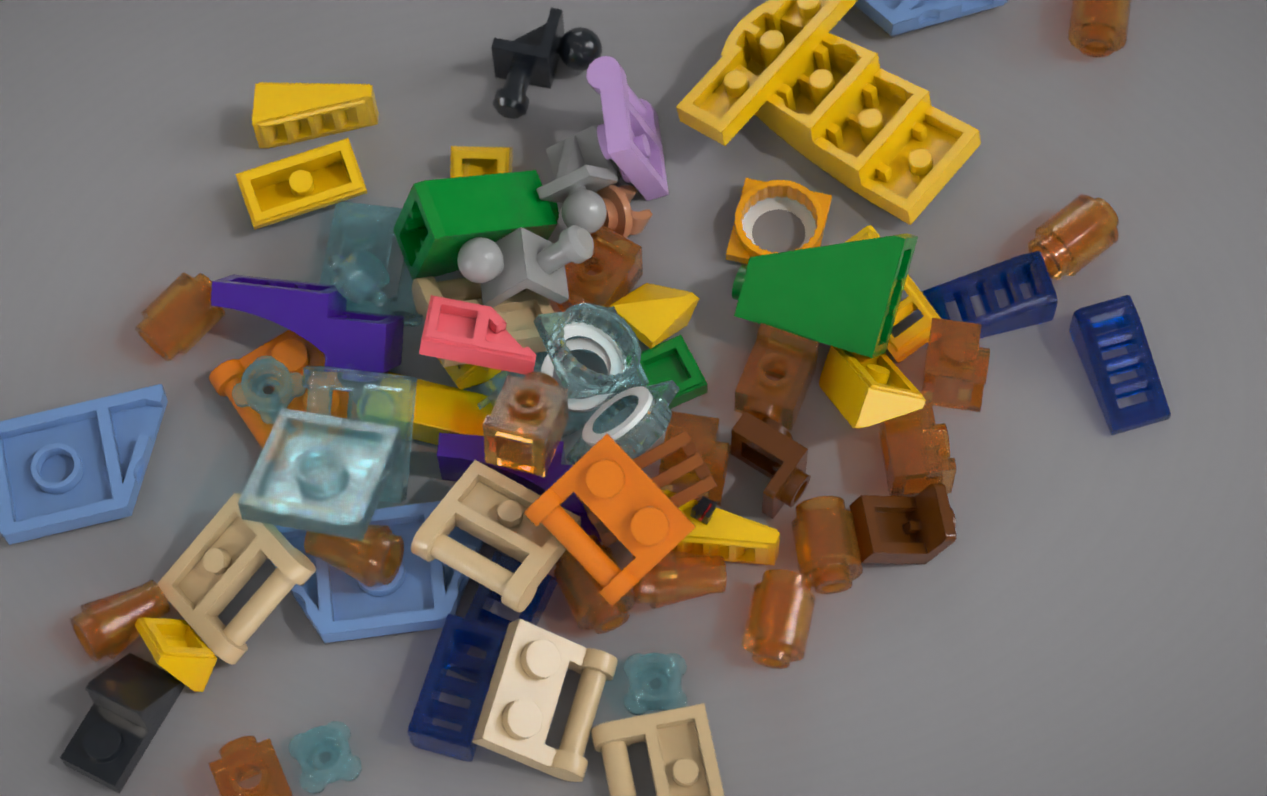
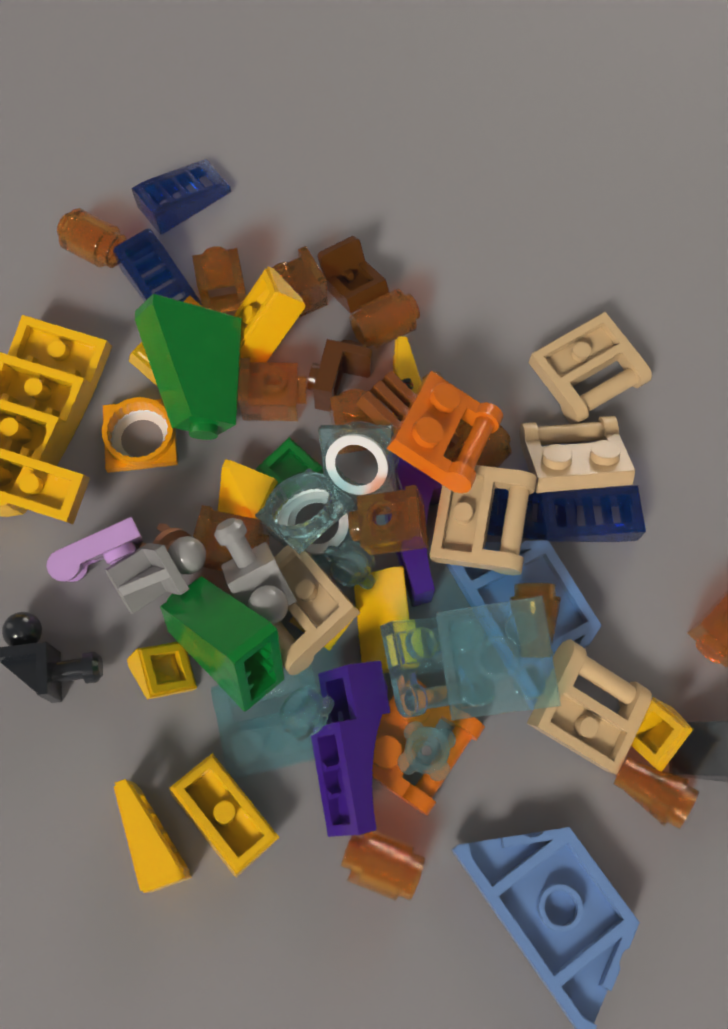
camera: 115 degrees left, 5 degrees up
(321, 739) = (693, 588): clear light blue plate -> none
(472, 336) = (334, 592): coral tile -> none
(651, 666) = (527, 384): clear light blue plate -> none
(779, 618) = (450, 330): clear orange brick -> none

